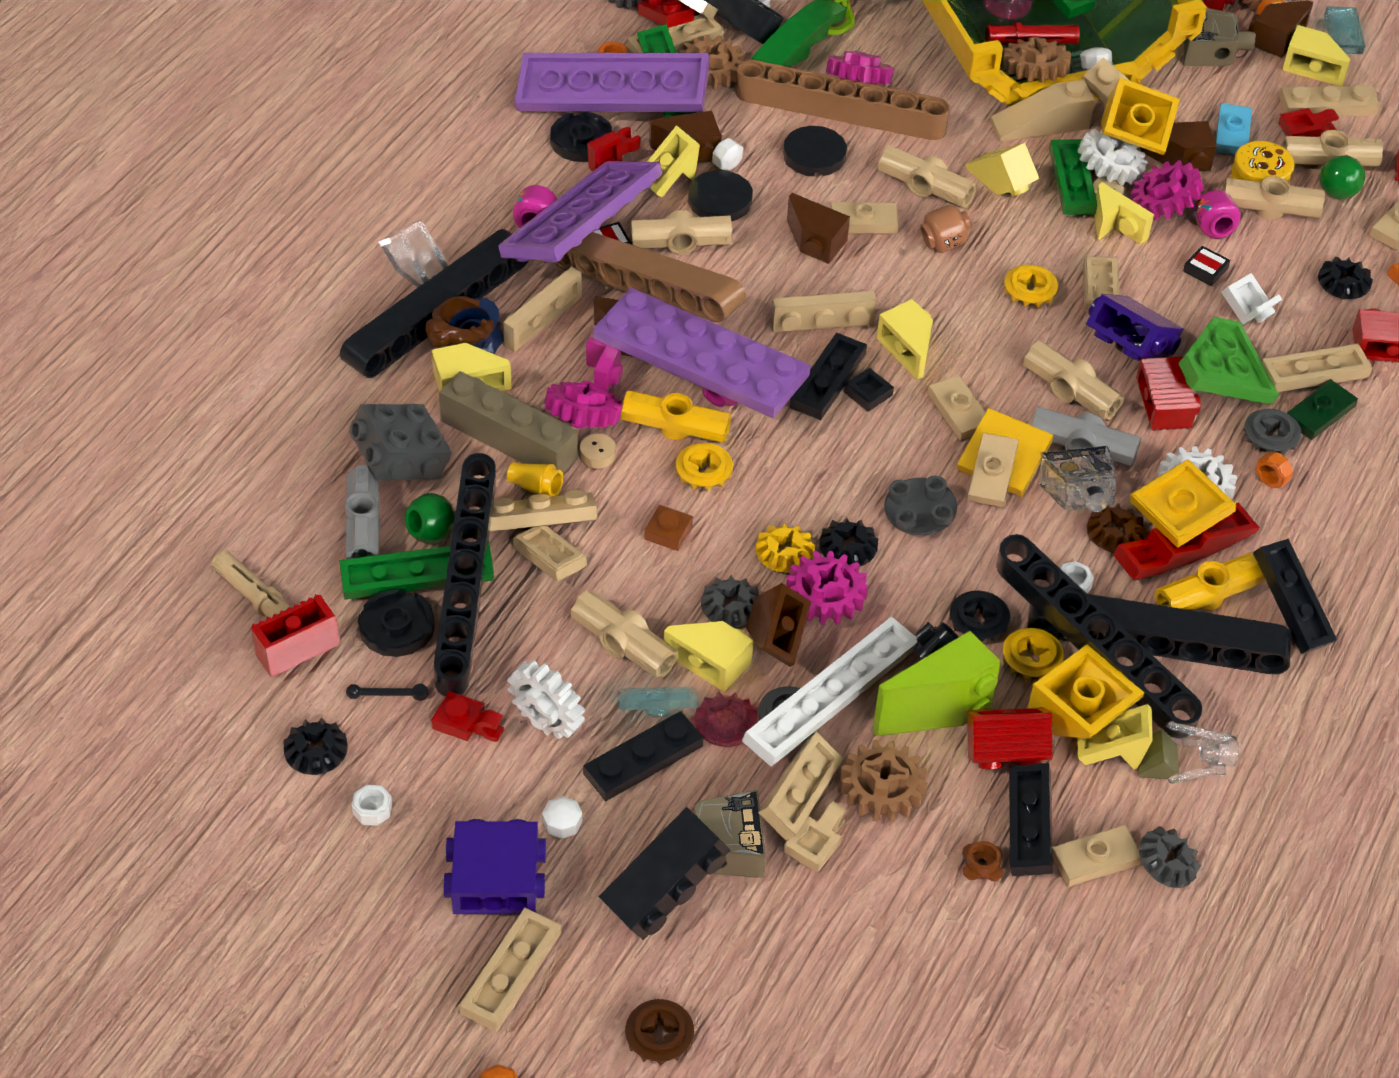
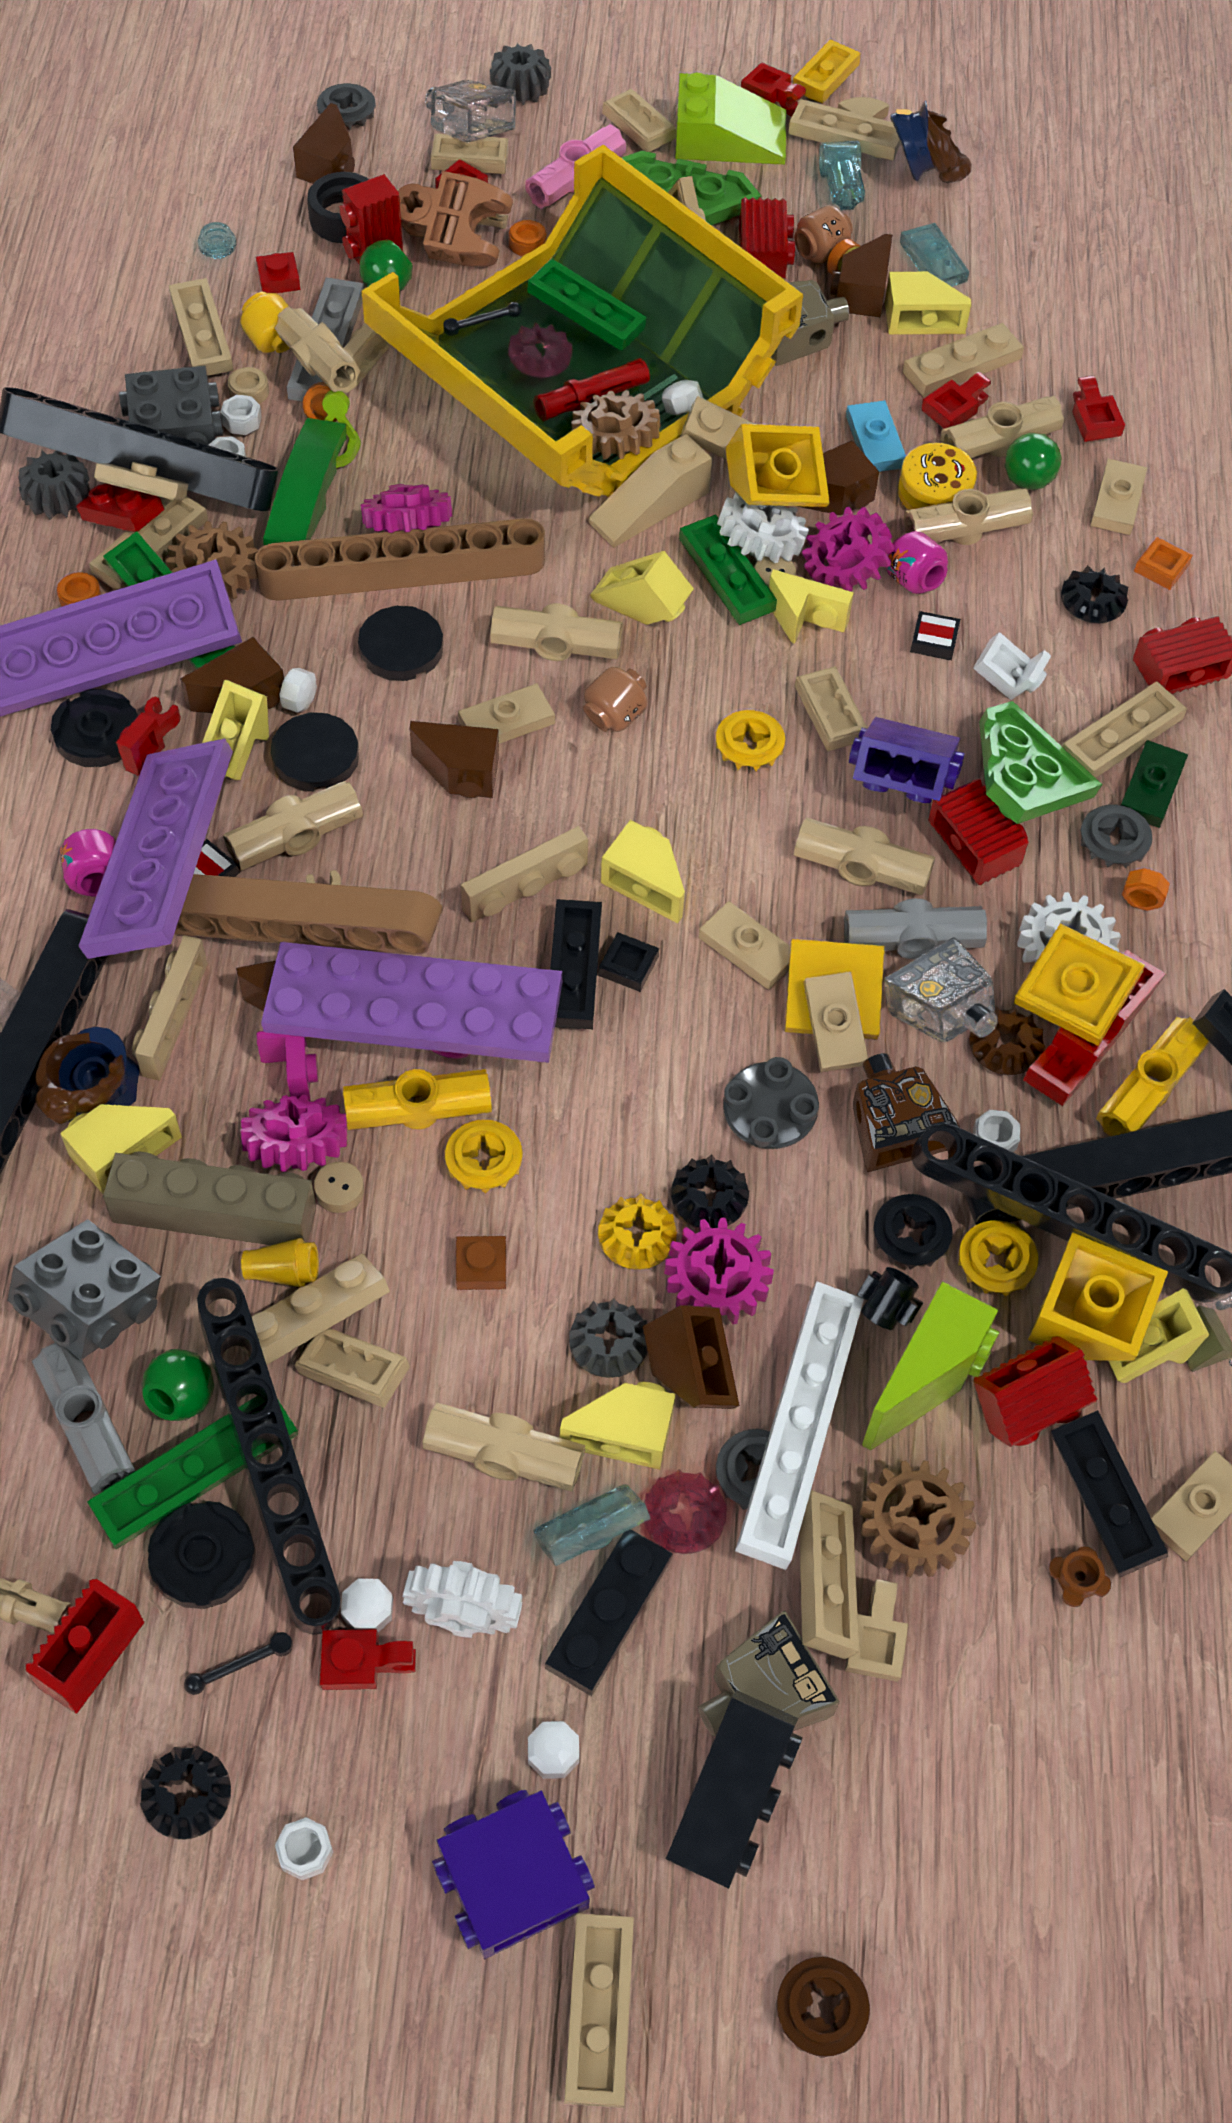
camera: 25 degrees left, 10 degrees up
(486, 688) = (367, 1605): none -> white tile
(997, 525) = (895, 1111): none -> torso

